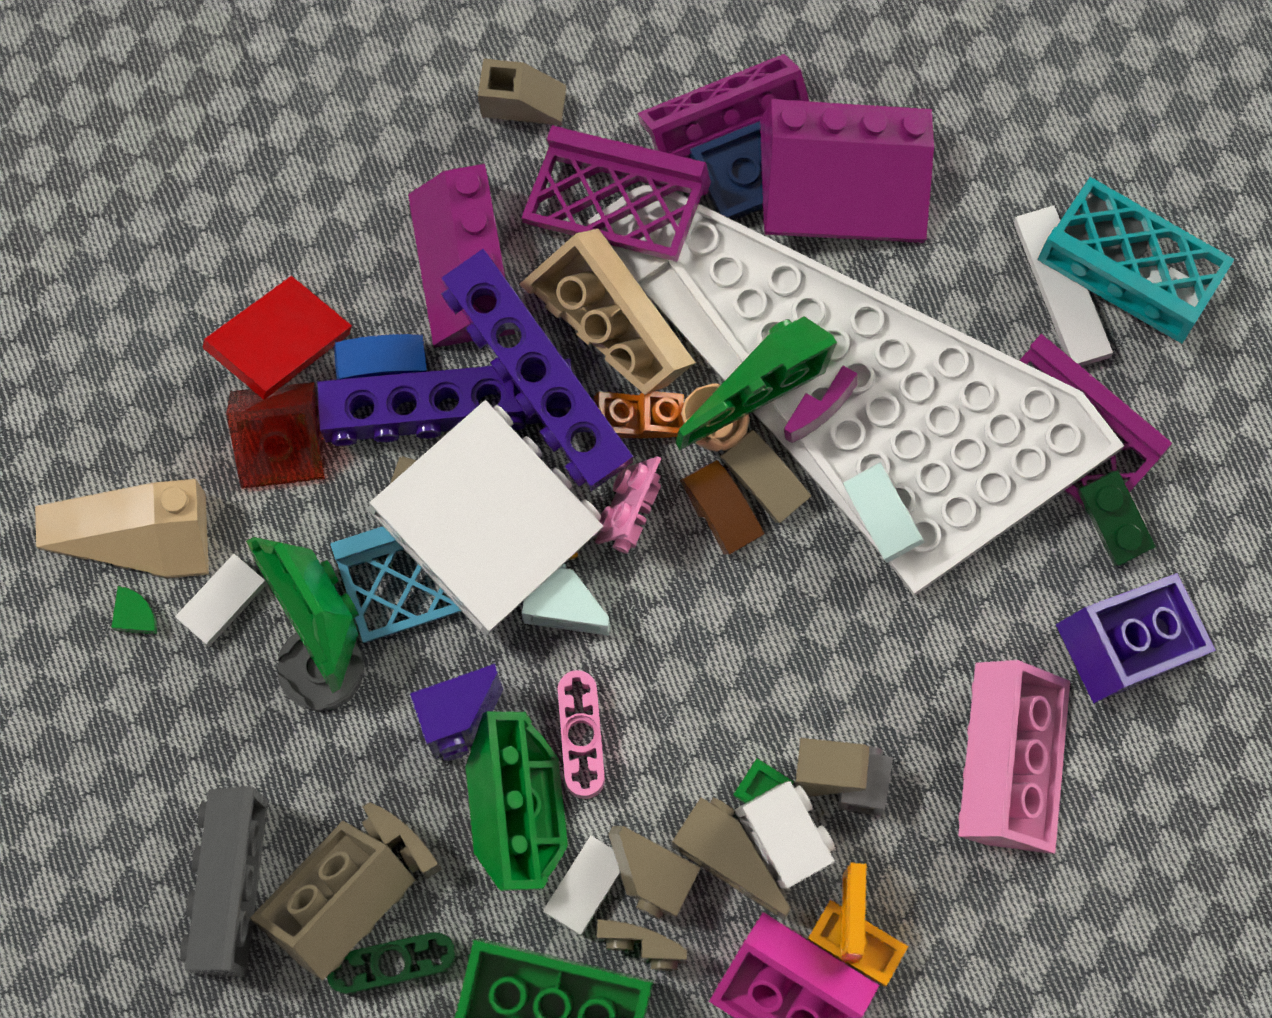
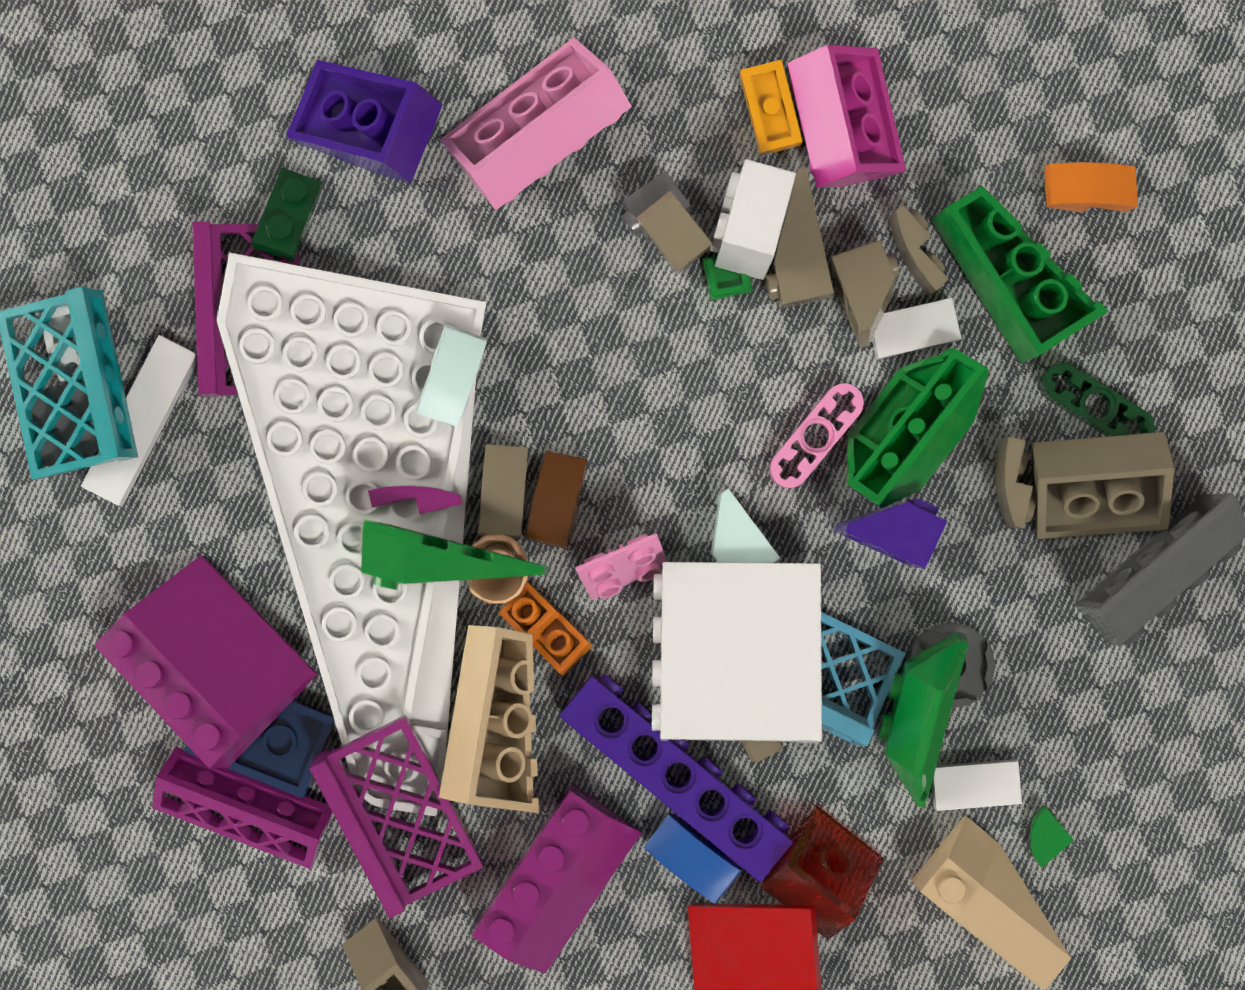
camera: 140 degrees left, 15 degrees up
(481, 277) = (595, 843): dark purple brick -> none
(853, 913) = (760, 121): light orange tile -> none

